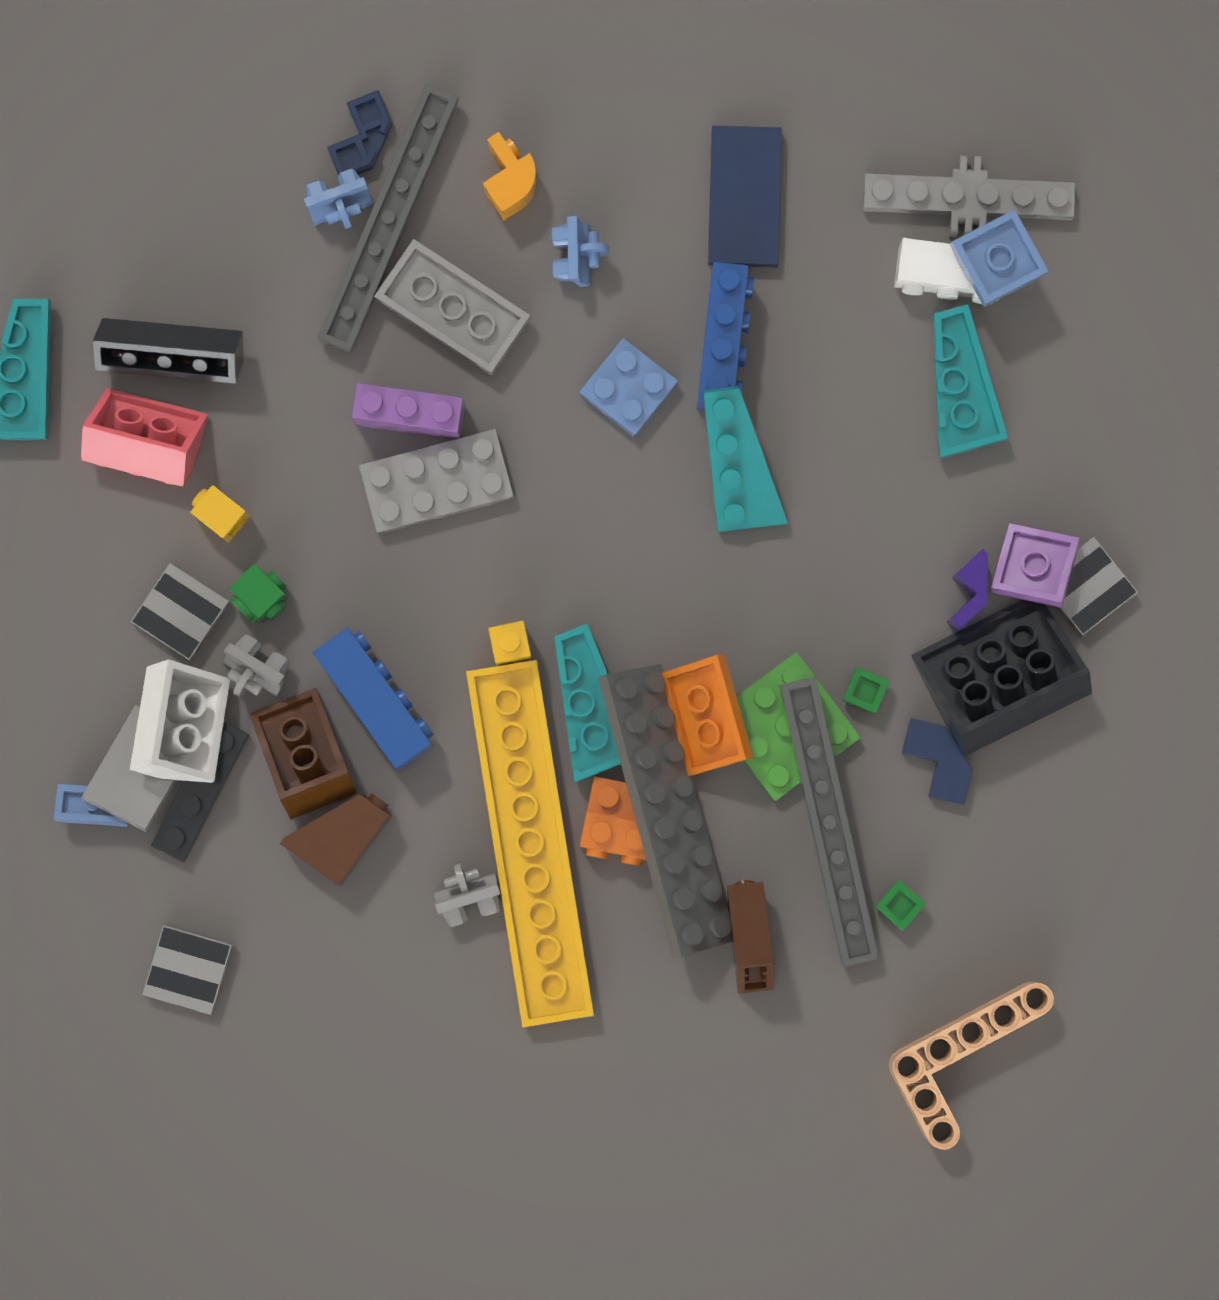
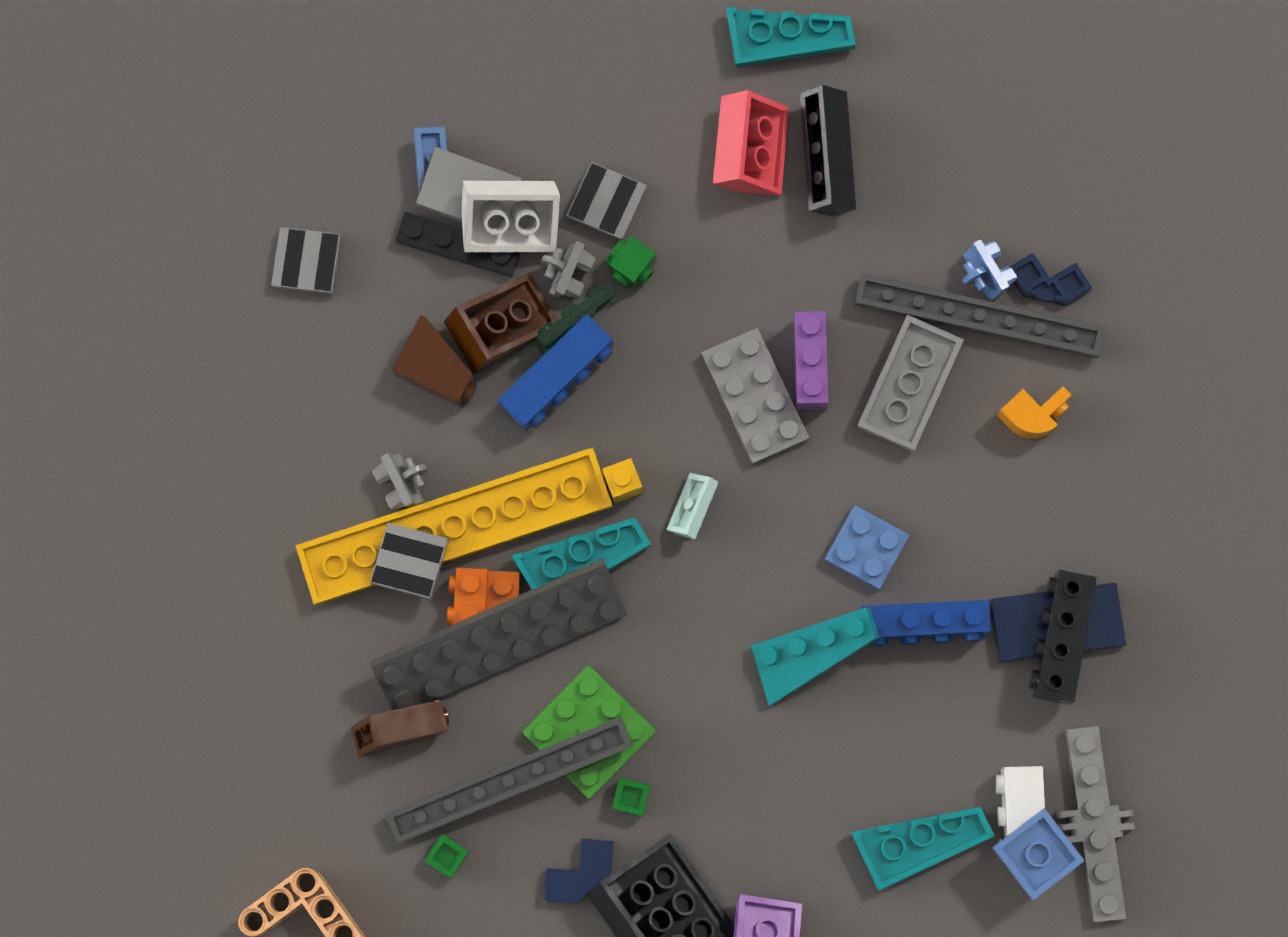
camera: 85 degrees right, 5 degrees down
(219, 513) = (695, 218): yellow brick -> none
(311, 669) = (595, 301): none -> clear green plate
(551, 570) = (692, 506): none -> light aqua plate
(563, 898) = (409, 561): none -> tile
(582, 251) = (979, 485): medium blue hips -> none
(707, 715) = (586, 659): orange plate -> none
(765, 189) = (1064, 637): none -> black brick
(974, 581) = (746, 878): dark purple slope -> none

